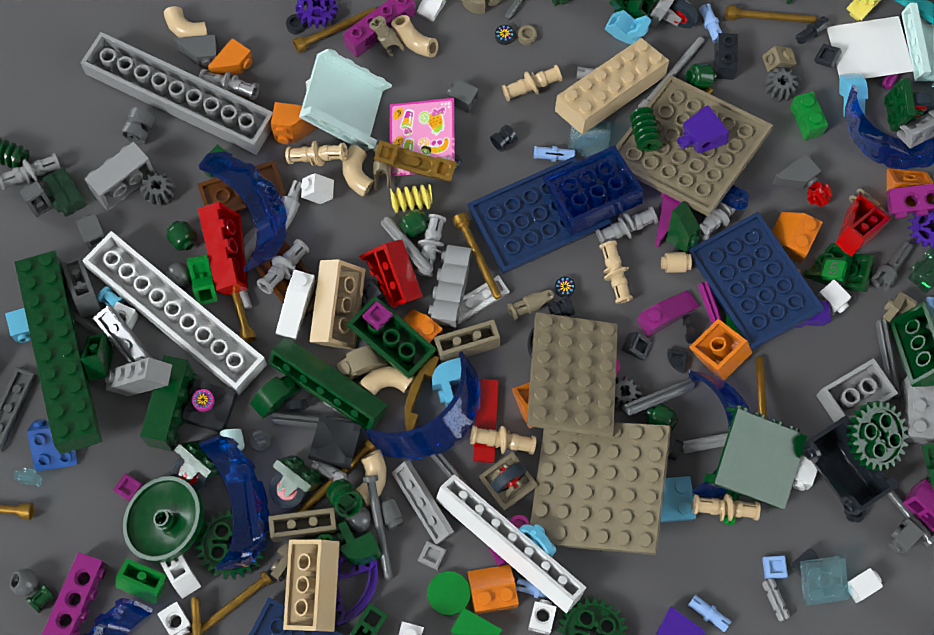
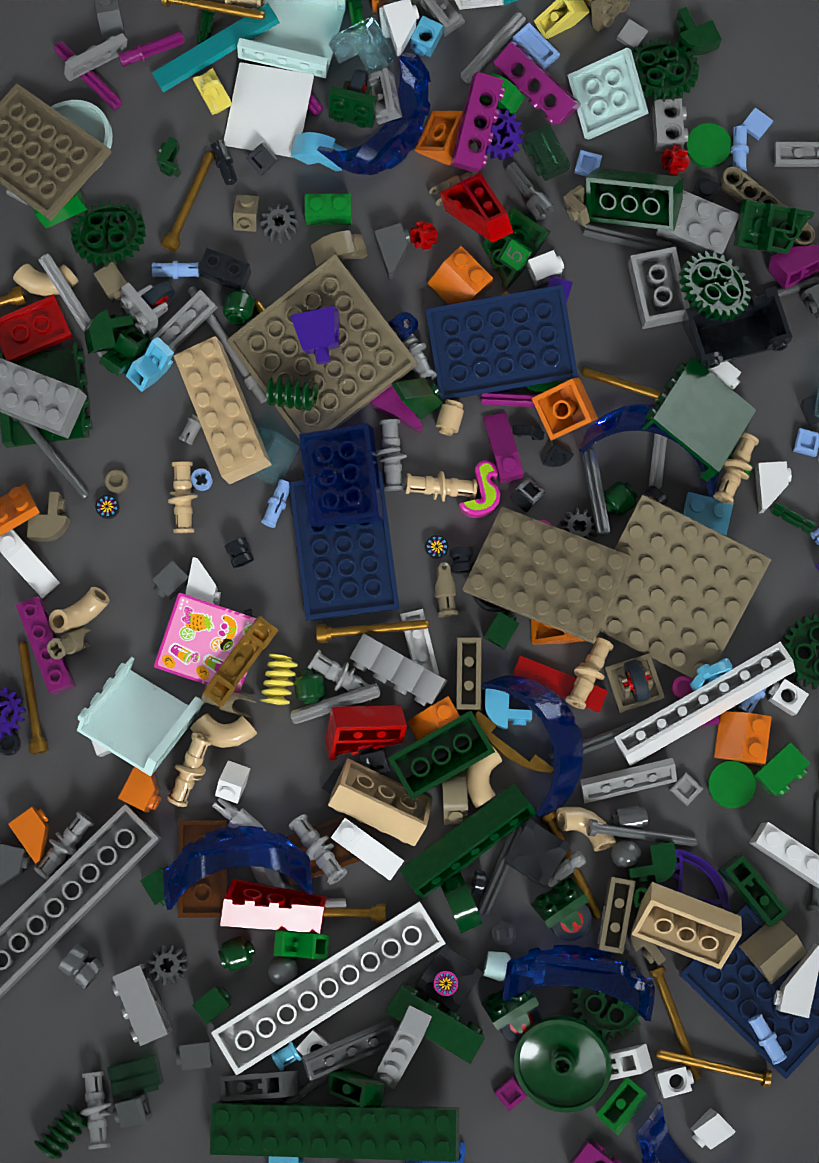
camera: 70 degrees left, 10 degrees up
(135, 230) = (212, 1004): none -> dark green brick
(344, 498) = (604, 862): dark green wheel -> none
(377, 315) = (413, 762): magenta tile -> none
(468, 118) = (201, 585): none -> white slope
(514, 358) = (502, 629): none -> dark green brick
(552, 87) = (203, 487): none -> light blue bush
(623, 313) = (488, 490): none -> dark pink animal
(673, 41) = (186, 320): none -> light grey plate
(703, 575) = (793, 517): none -> dark green axle
(726, 544) = (770, 482): none -> white slope
(782, 134) = (340, 243): none -> dark tan brick

